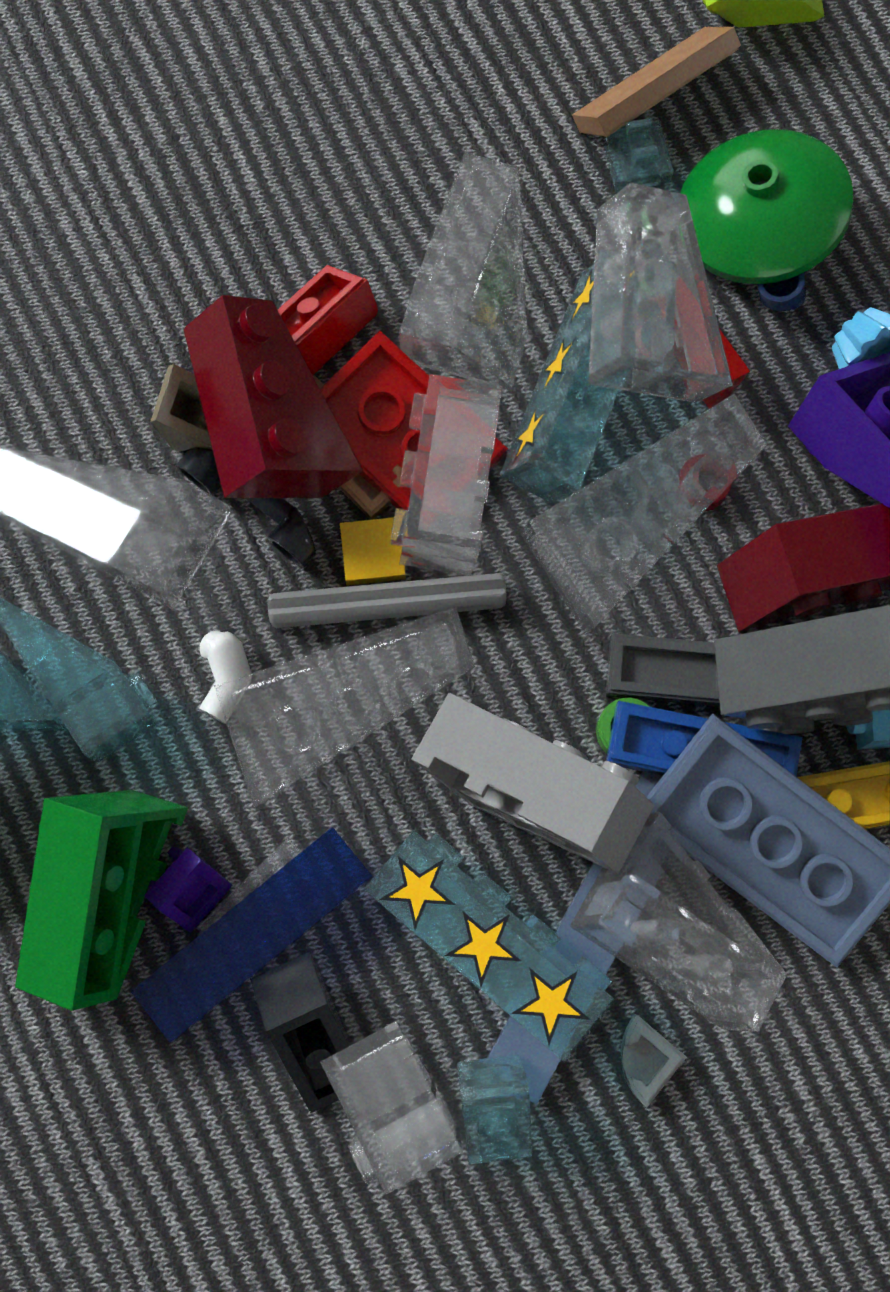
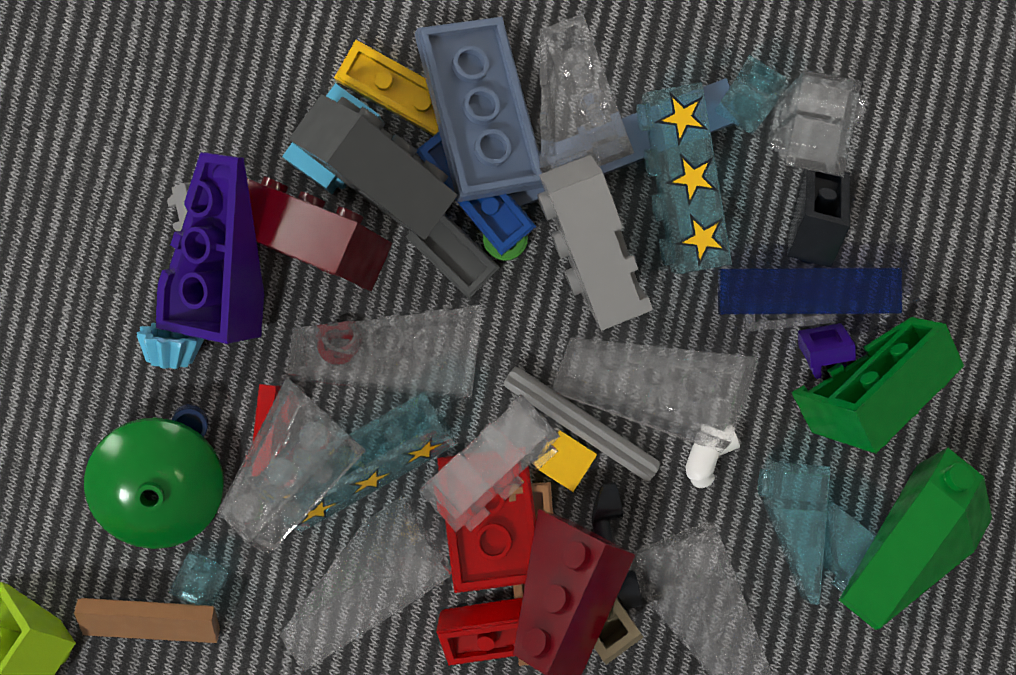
camera: 135 degrees left, 10 degrees up
(647, 1060) = (645, 53): light grey tile -> none

